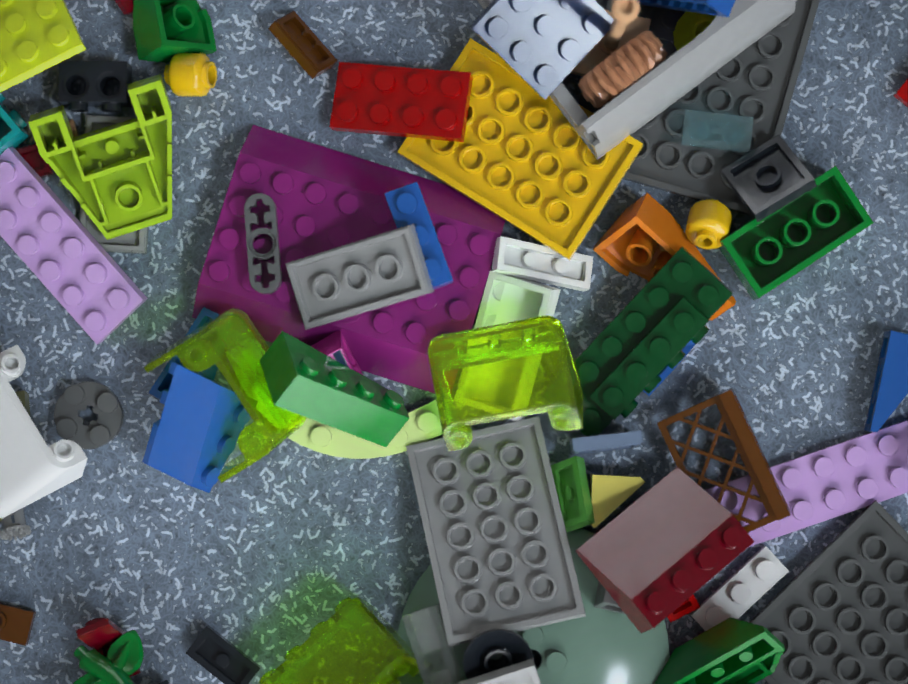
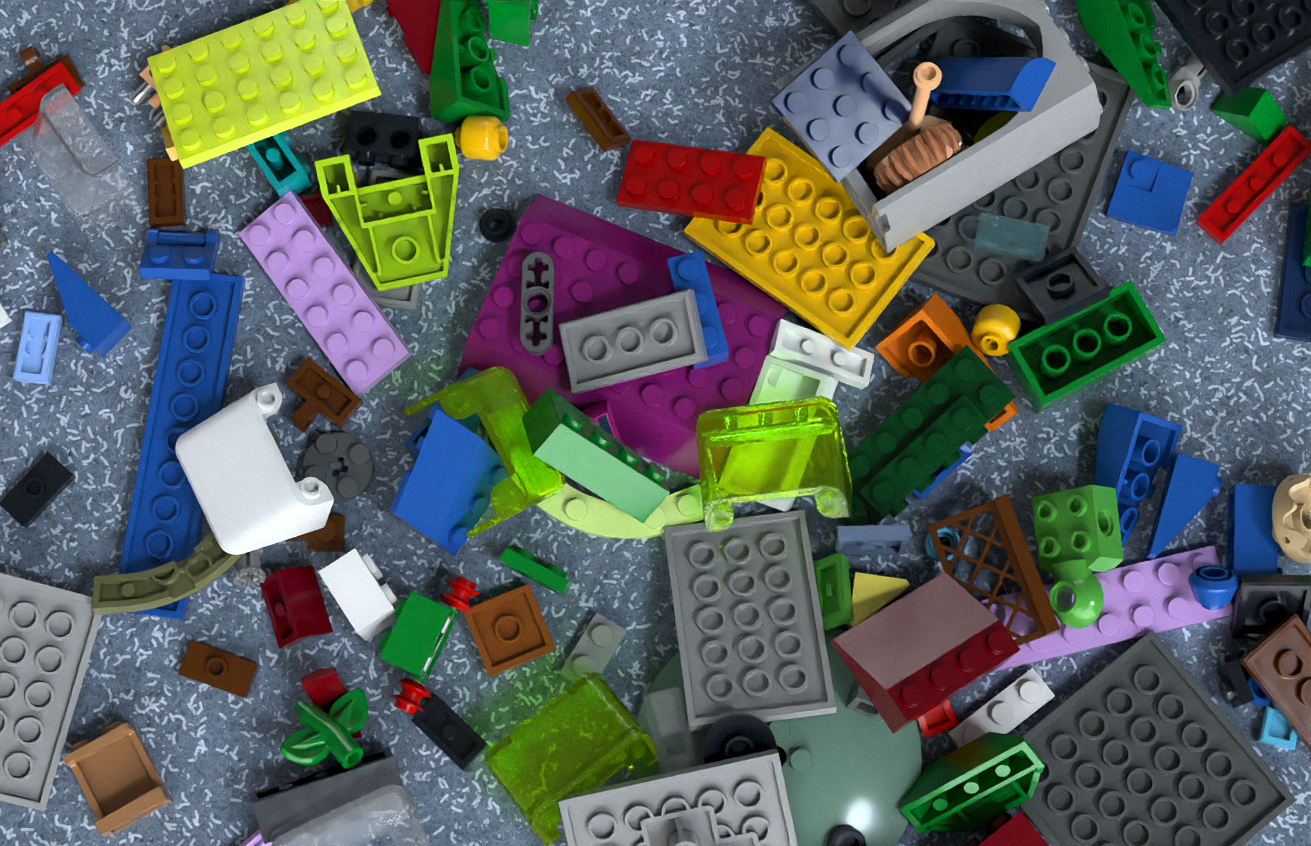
camera: 10 degrees right, 10 degrees down
(63, 347) = (321, 395): none -> reddish brown plate
(63, 553) = (295, 605): none -> dark red panel
(89, 484) = (327, 539): none -> reddish brown plate
(124, 540) = (359, 594): none -> white brick
(184, 578) = (420, 637): none -> green brick
(209, 151) = (492, 216): none -> black plate
(269, 558) = (509, 630): none -> dark orange plate
(302, 504) = (523, 563): none -> green plate
(350, 568) = (594, 648): none -> light grey plate
(683, 431) = (946, 533): none -> medium azure plate
(797, 425) = (1074, 536): none -> bright green brick
(842, 336) = (1129, 456): none -> blue wedge
(847, 71) = (1149, 194): none -> blue plate

